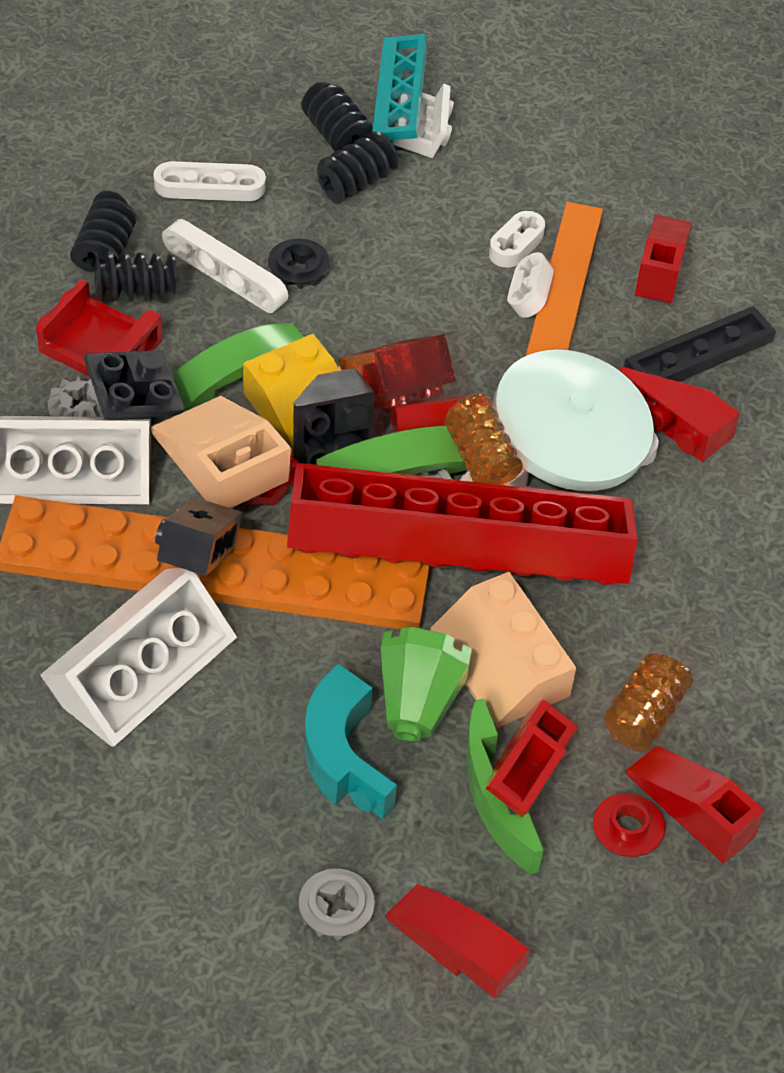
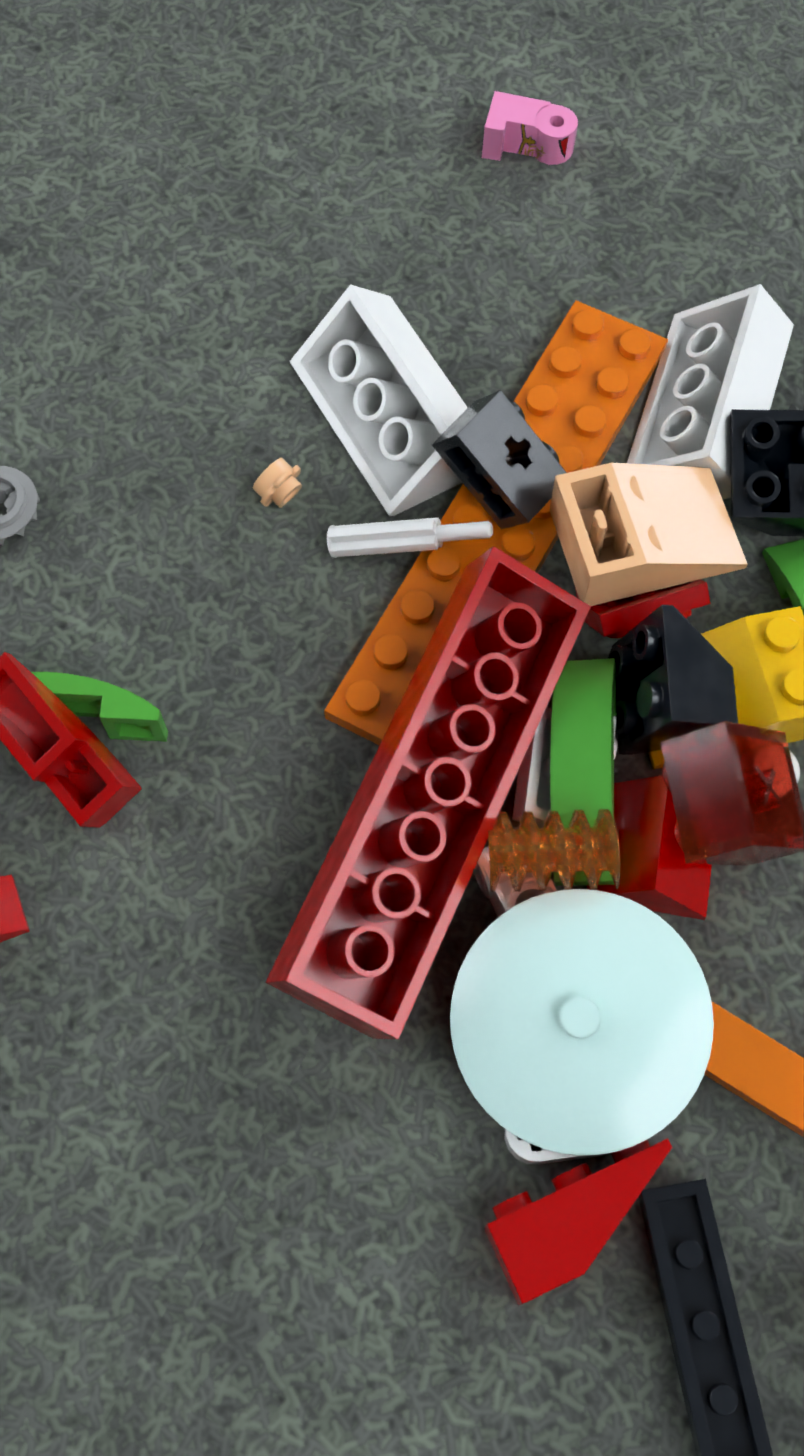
camera: 115 degrees right, 15 degrees up
(241, 709) = (278, 483): none -> light nougat plate
(266, 609) = (400, 536): none -> white axle
(331, 715) = (185, 548): teal arch -> none
(420, 680) = (226, 667): bright green cone -> none
(512, 649) = (236, 796): light nougat slope -> none
(647, 701) = (83, 939): clear orange piece -> none

